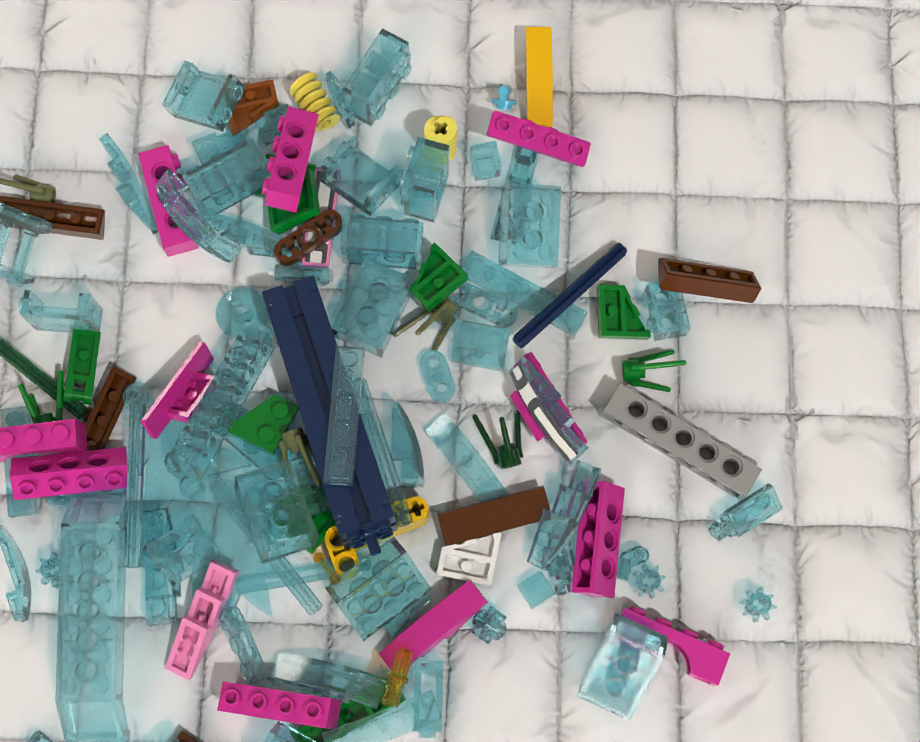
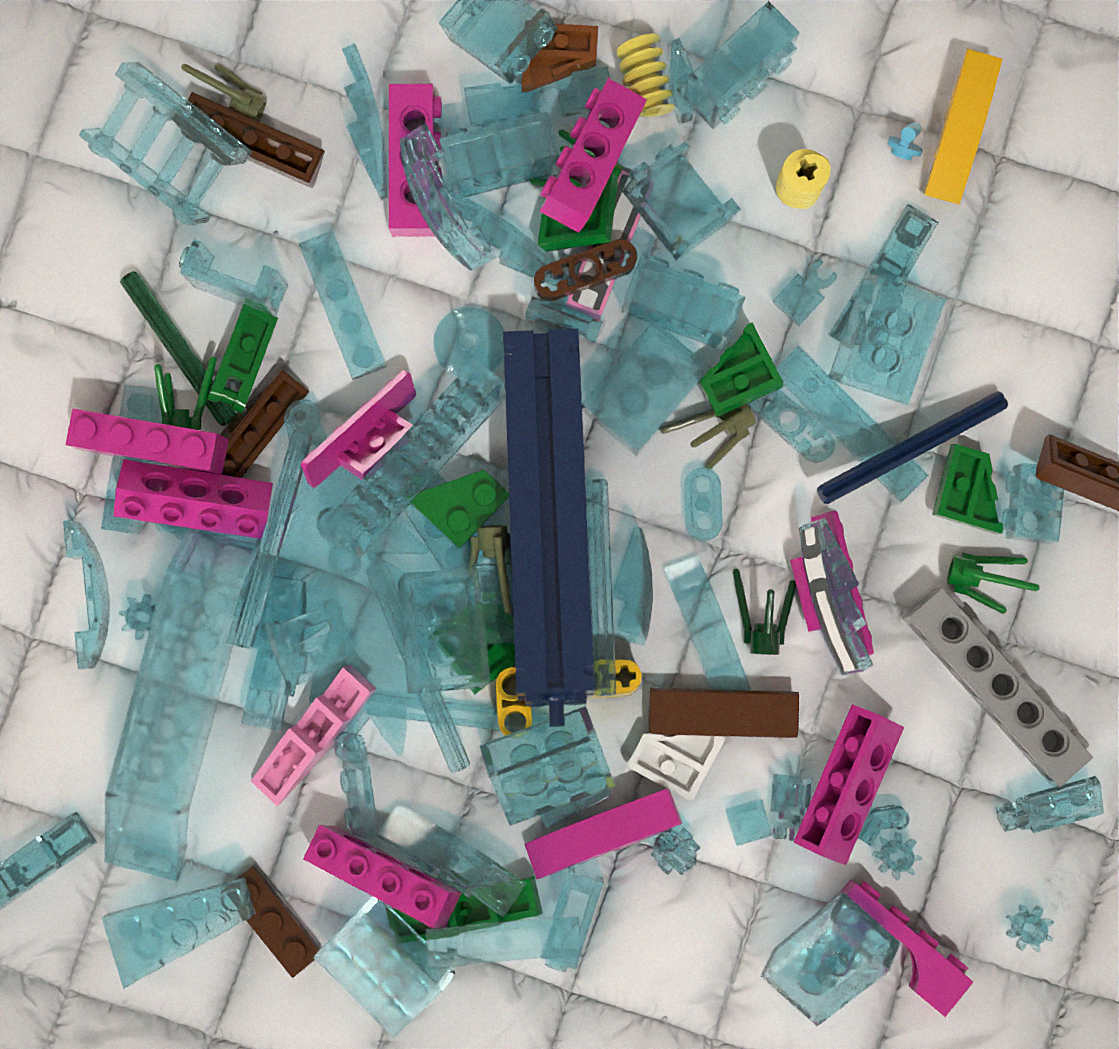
camera: 20 degrees right, 10 degrees up
(145, 311) = (342, 305): none -> clear light blue plate
(334, 578) = (495, 737): clear yellow hinge -> none
(344, 416) = (566, 536): clear light blue plate -> none
(397, 678) = (539, 886): clear yellow axle -> none
(424, 179) = (764, 233): clear light blue brick -> none
(465, 218) = (802, 295): none -> clear light blue plate
(479, 345) = (771, 484): clear light blue panel -> none
(485, 160) = (854, 225): clear light blue panel -> none
(538, 138) = (935, 218): dark pink bracket -> none
(560, 522) = (807, 748): clear light blue slope -> none

